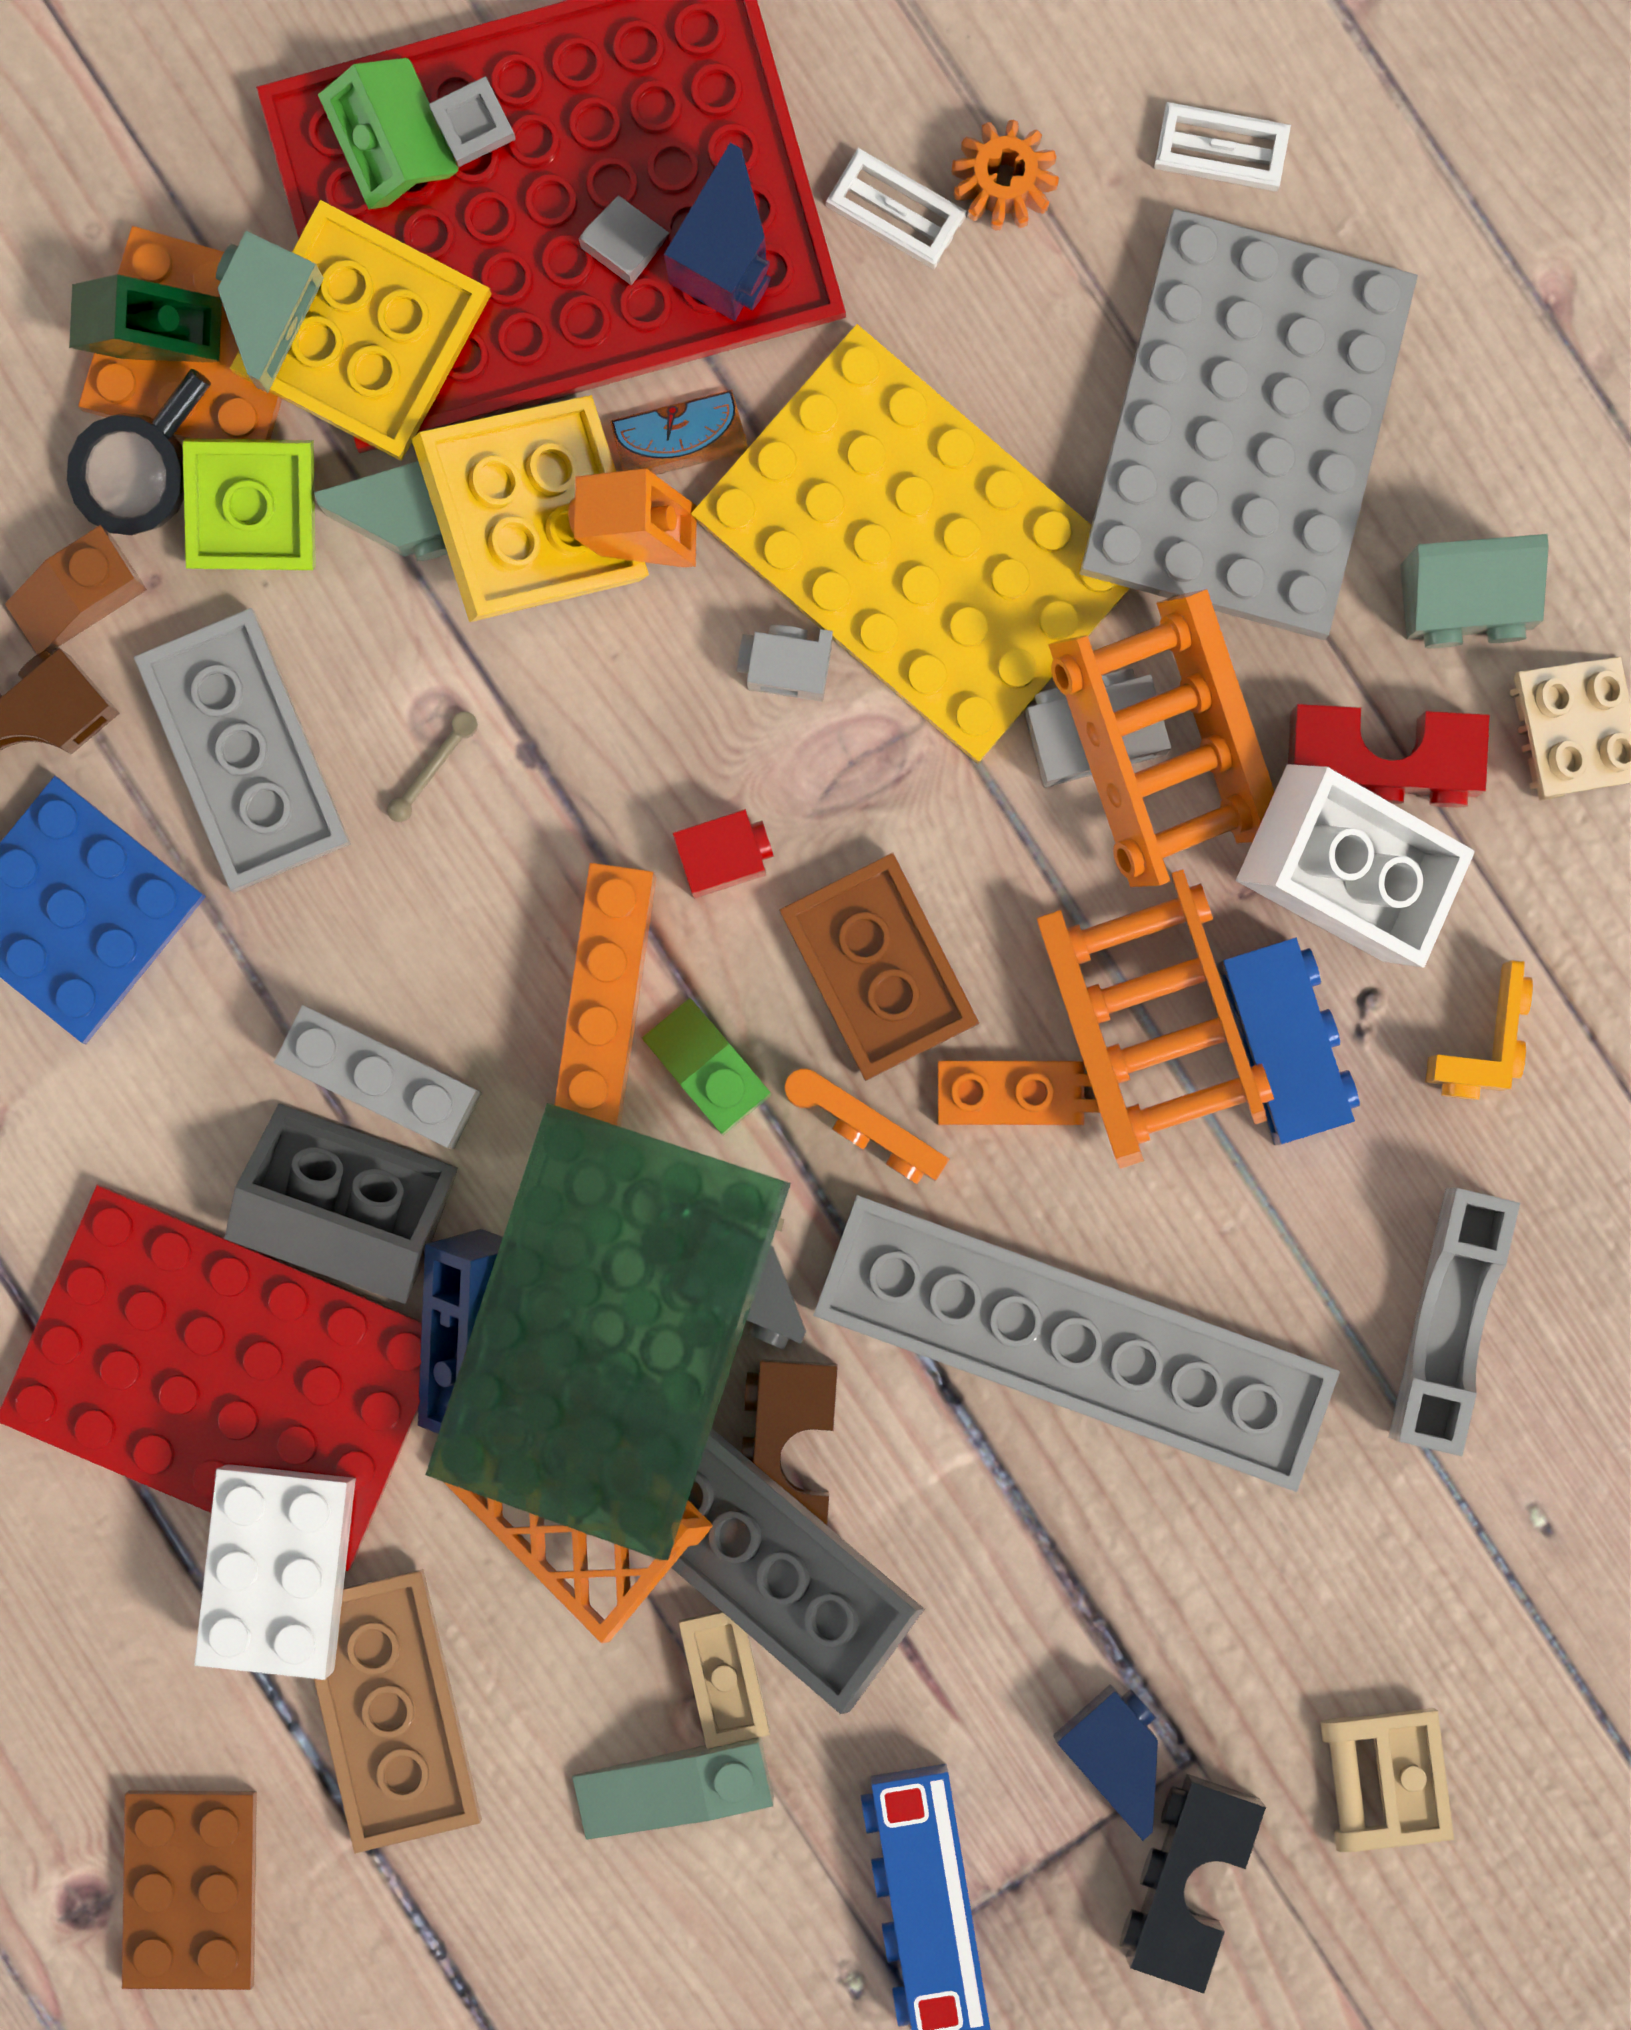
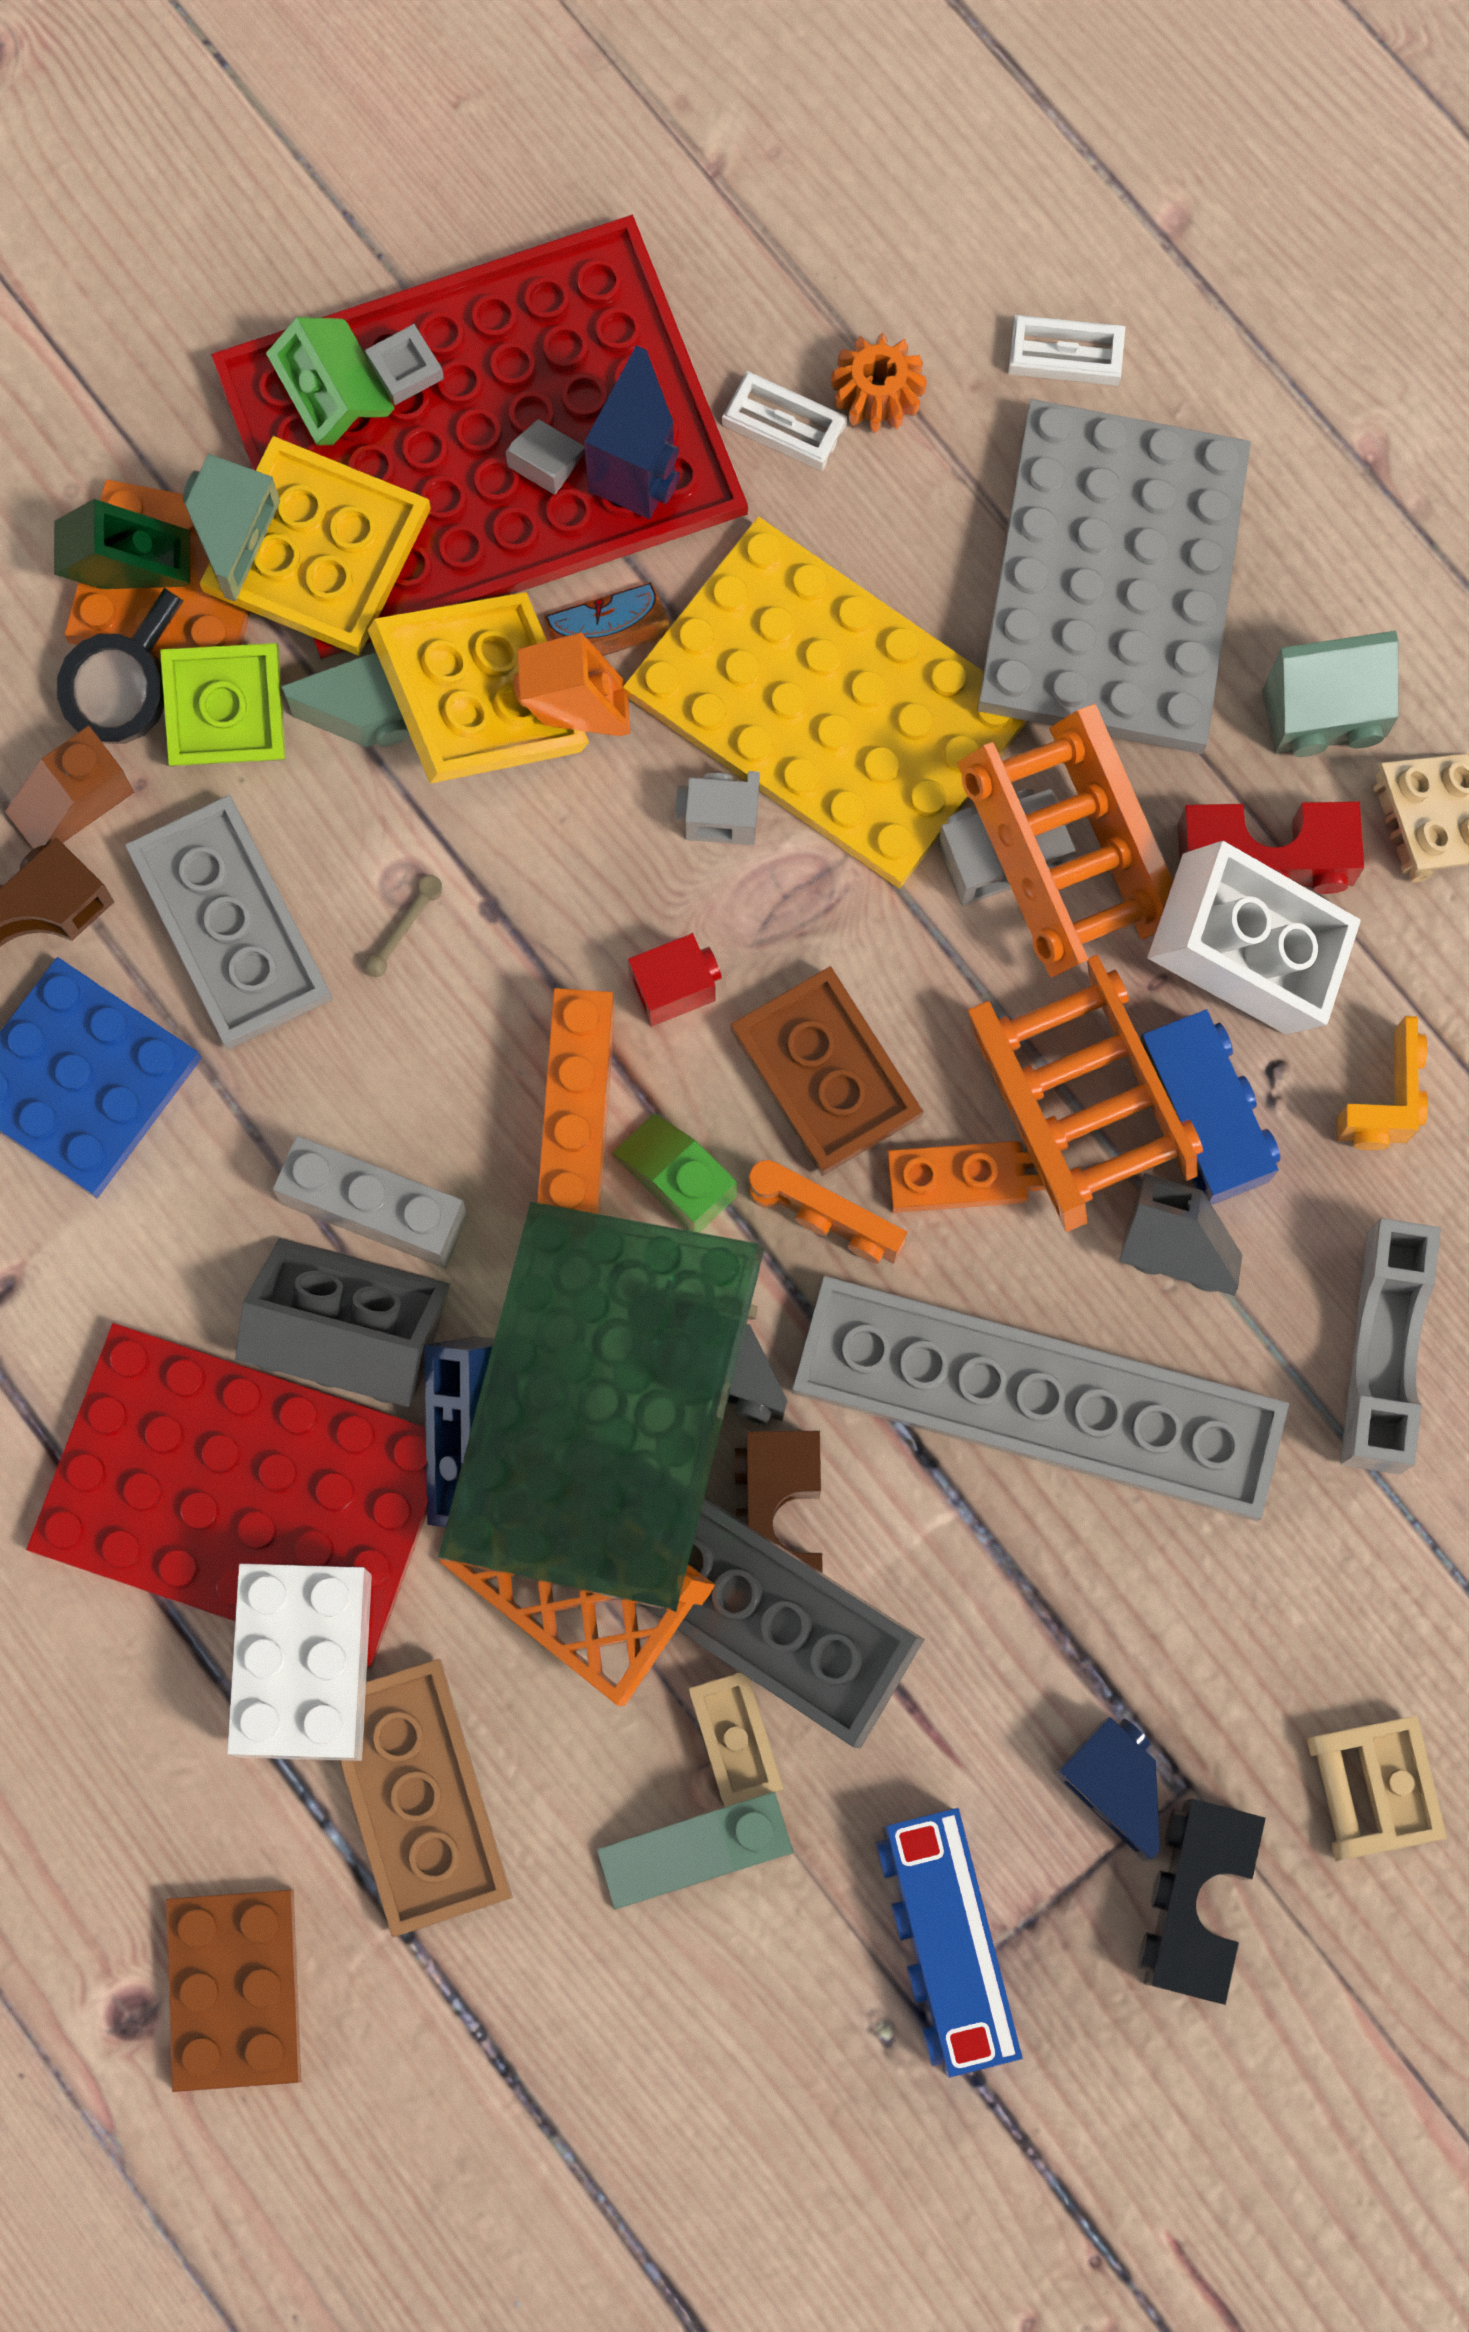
camera: 10 degrees left, 10 degrees down
(1243, 1184) = (1180, 1237): none -> dark grey slope

